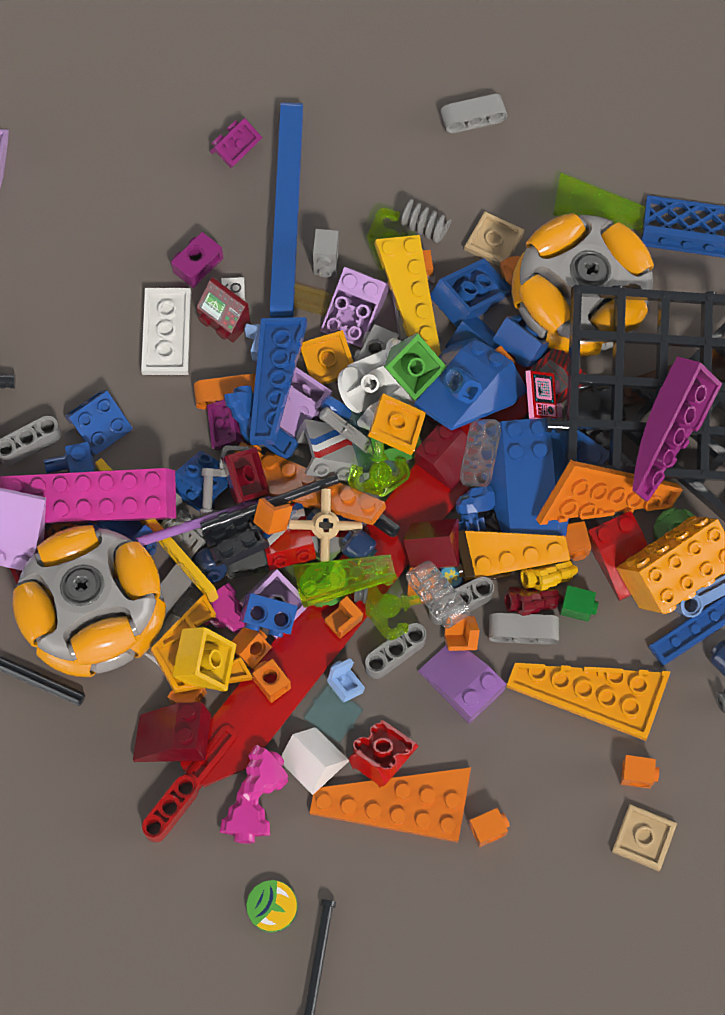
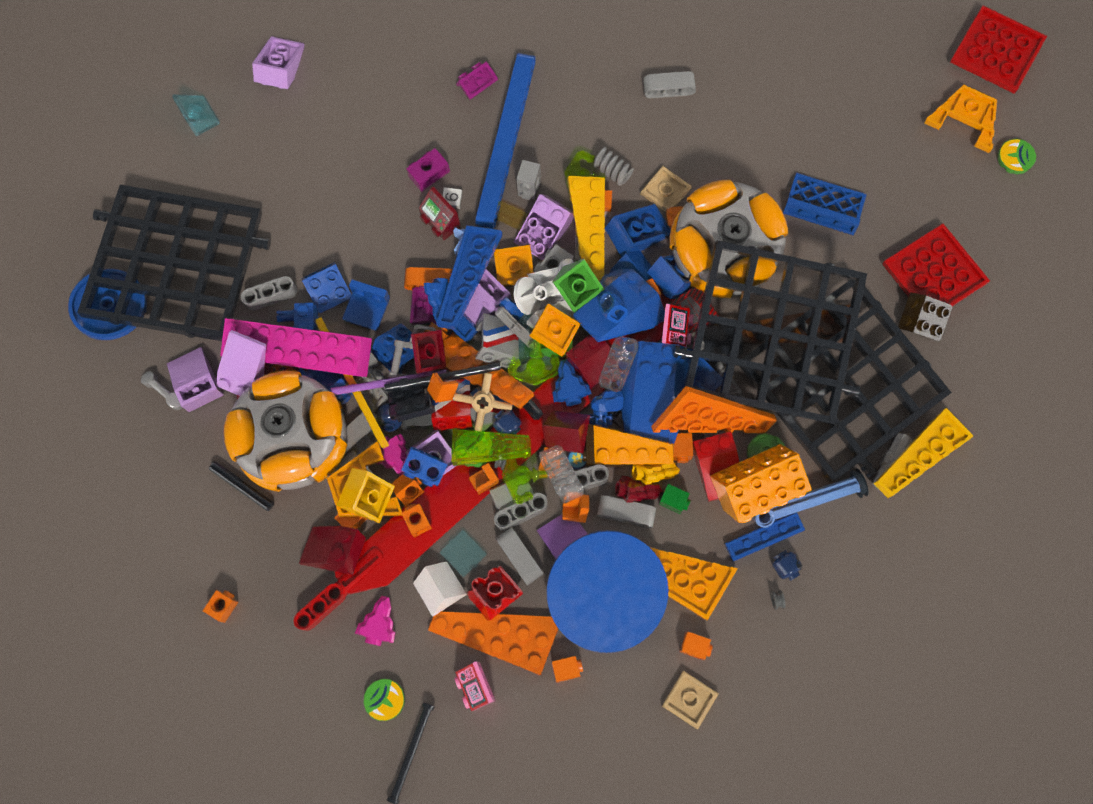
camera: 15 degrees right, 5 degrees up
(48, 839) = (212, 606): none -> orange brick
(153, 435) = (366, 305): none -> blue bracket
(166, 331) = (393, 223): white plate -> none
(263, 774) = (396, 594): dark pink rock -> none
(344, 680) = (476, 529): light blue bracket -> none
(370, 637) = (502, 497): none -> light grey slope
(382, 867) = (474, 686): none -> slope
(404, 704) = (519, 556): none -> light grey beam
(425, 490) = (569, 385): none -> blue rock
(520, 724) = (607, 591): none -> blue tile
(585, 199) = (745, 169): clear neon green wing -> none
(674, 416) = (780, 361): magenta wedge -> none

